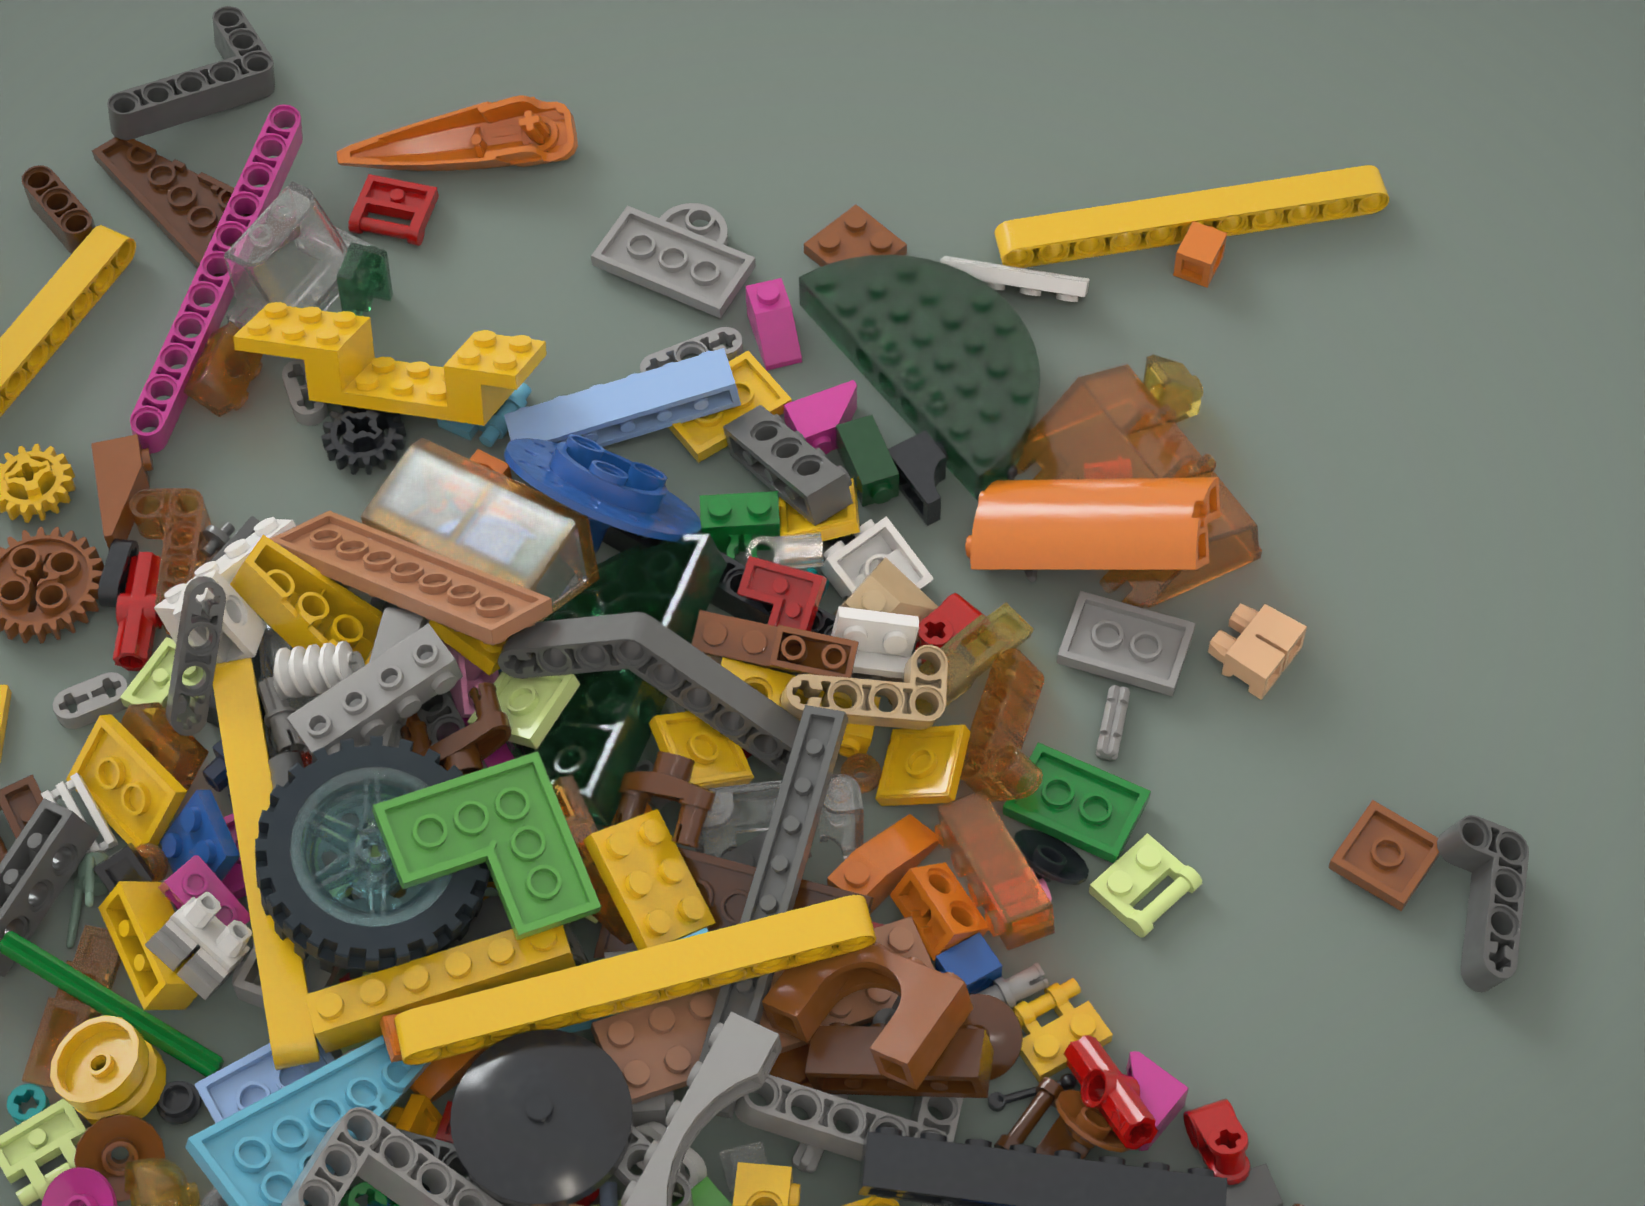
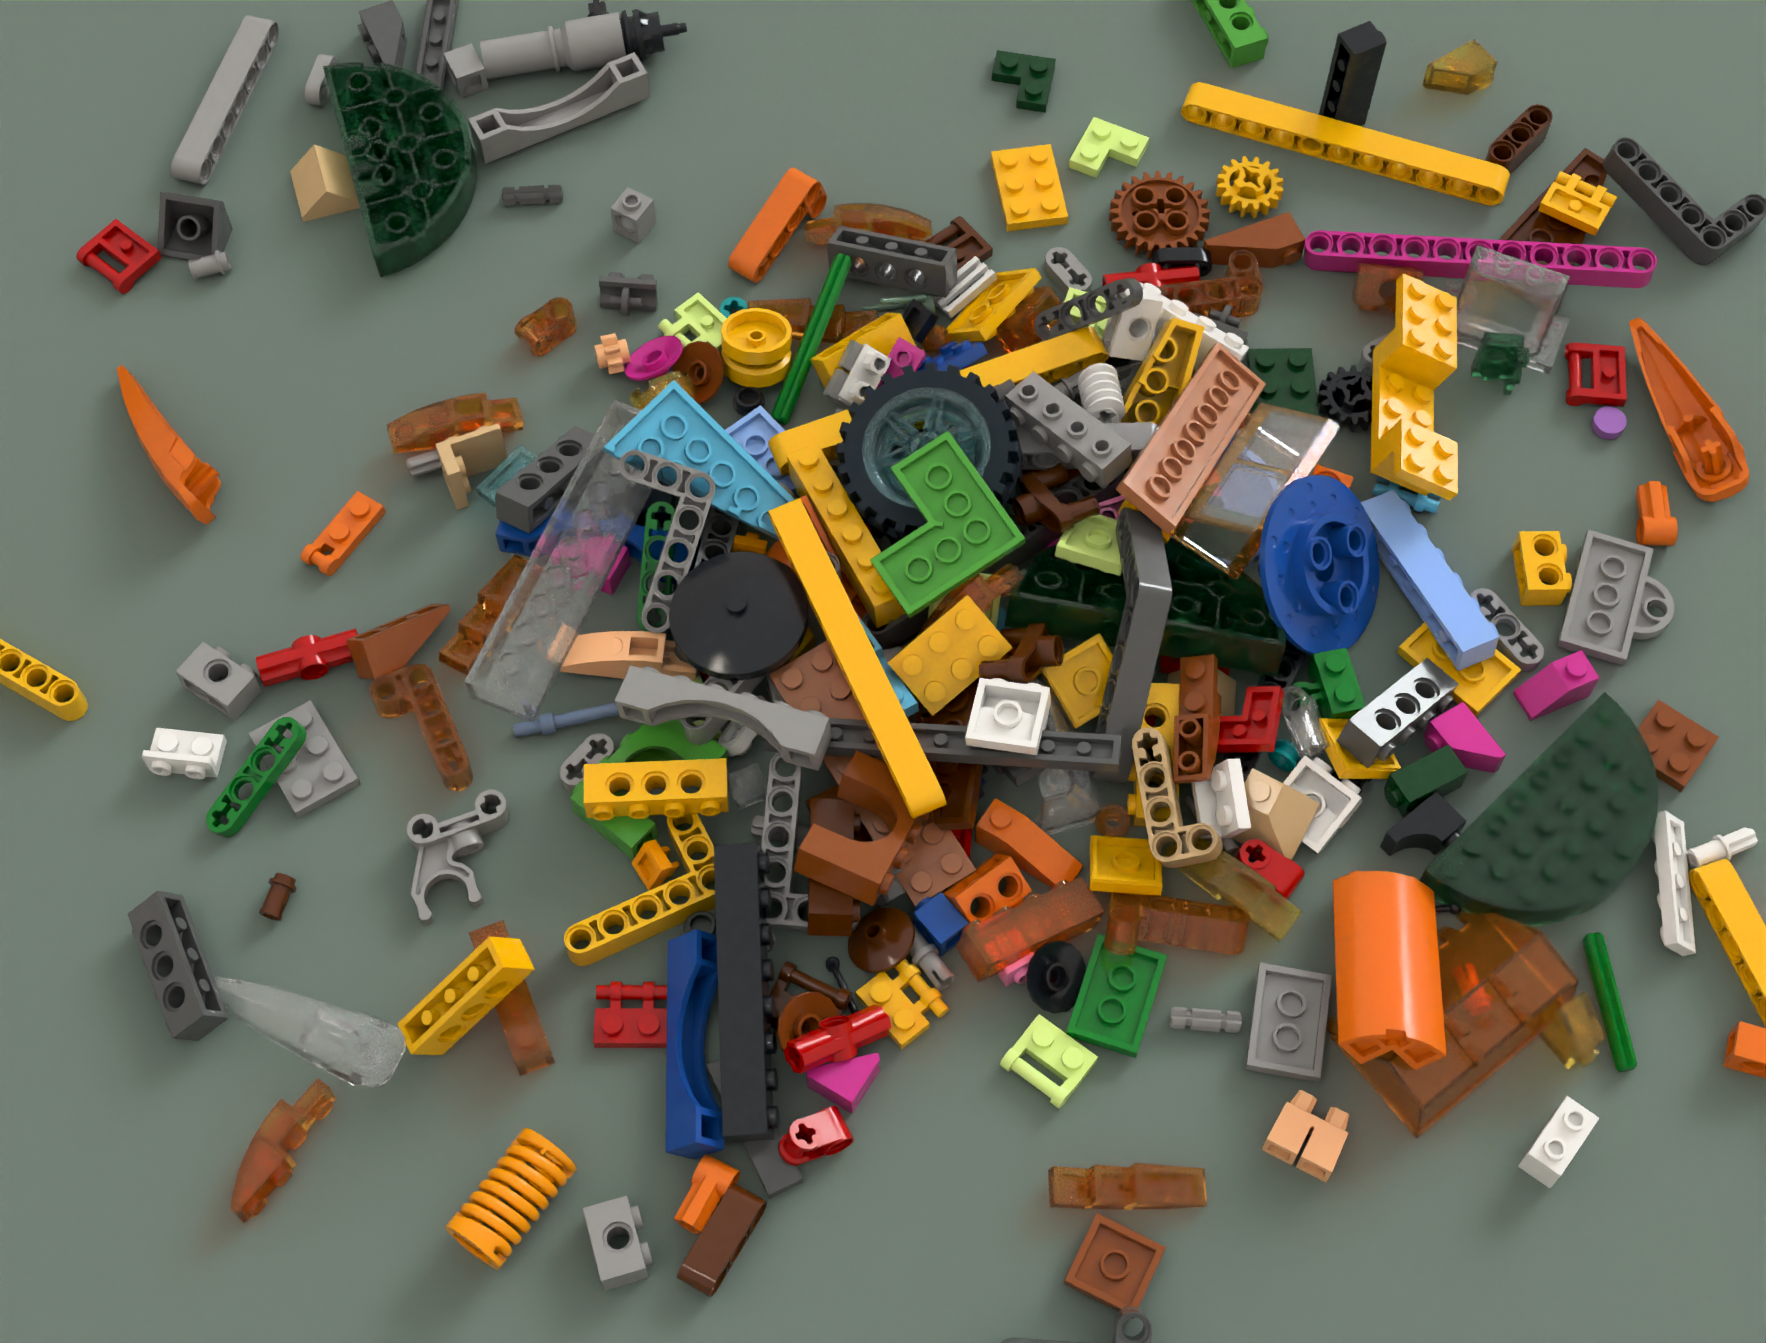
camera: 80 degrees right, 5 degrees up
(174, 176) = (1577, 203): none -> yellow plate
(310, 491) = (1287, 378): none -> dark green plate
(456, 213) = (1608, 423): none -> medium lavender tile
(595, 199) = (1654, 523): none -> orange piece
(627, 308) = (1533, 568): none -> yellow brick
(759, 817) = (1008, 716): none -> white plate
(979, 231) = (1722, 847): none -> white axle
(1102, 359) = (1609, 1002): none -> green axle
(1283, 430) = (1558, 1142): none -> white brick
(1299, 830) = (1127, 1187): none -> clear orange slope

